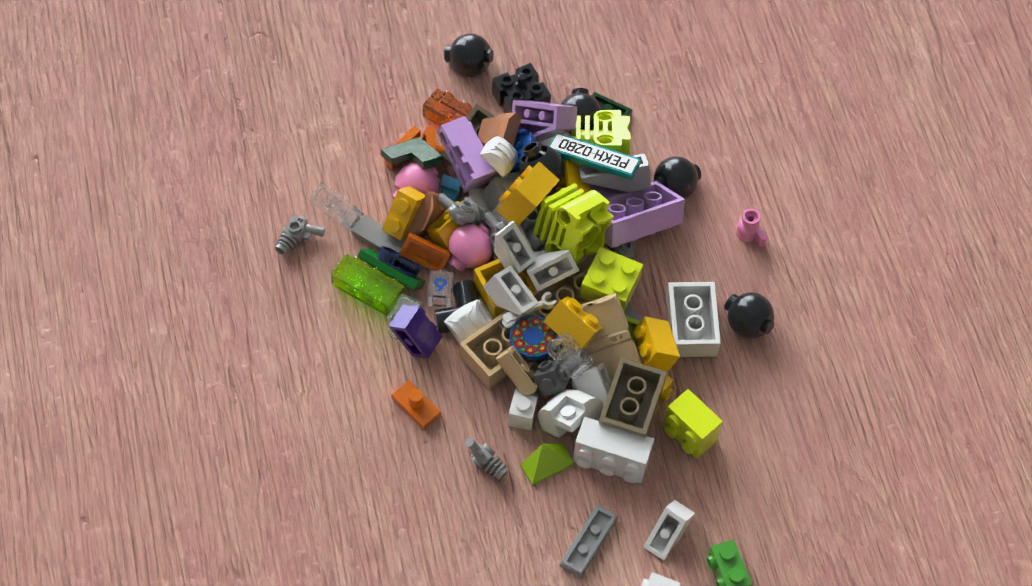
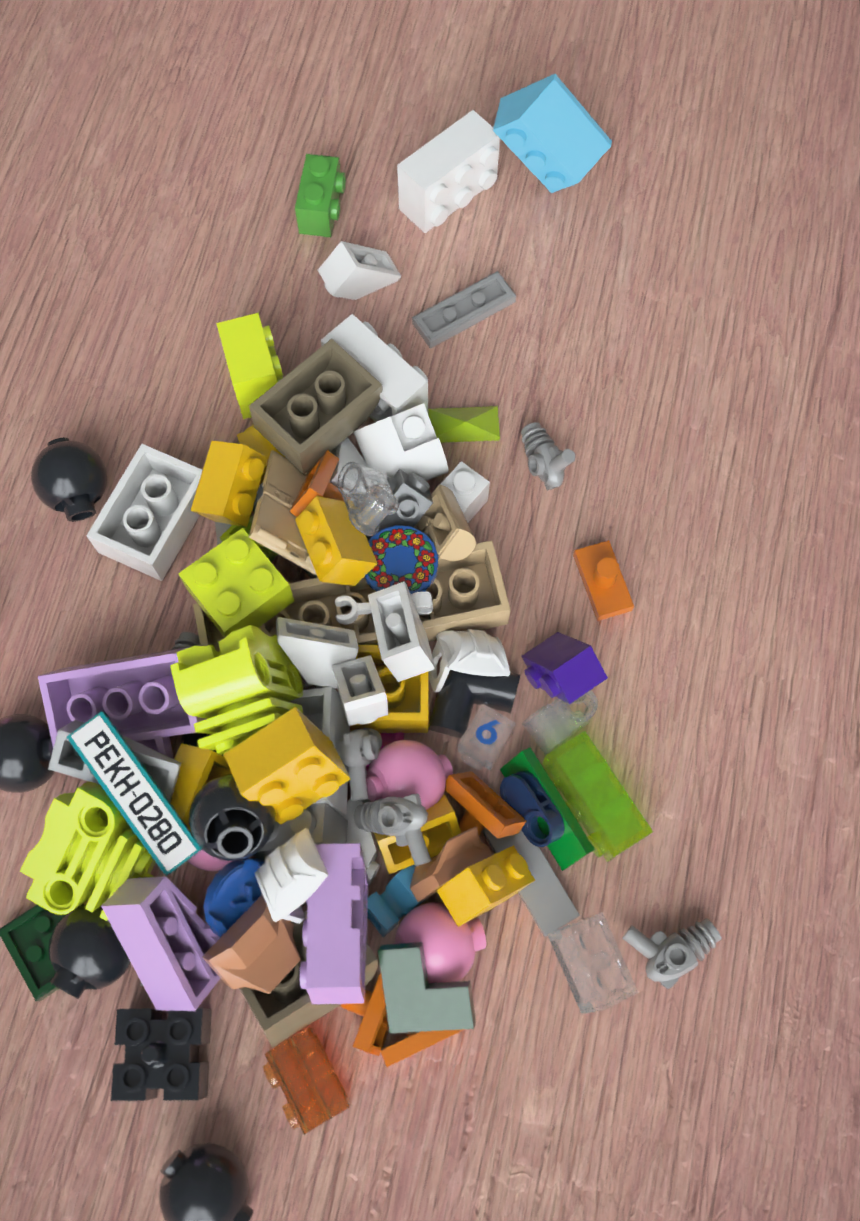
camera: 150 degrees left, 10 degrees up
(604, 356) = (317, 484): none -> orange tile

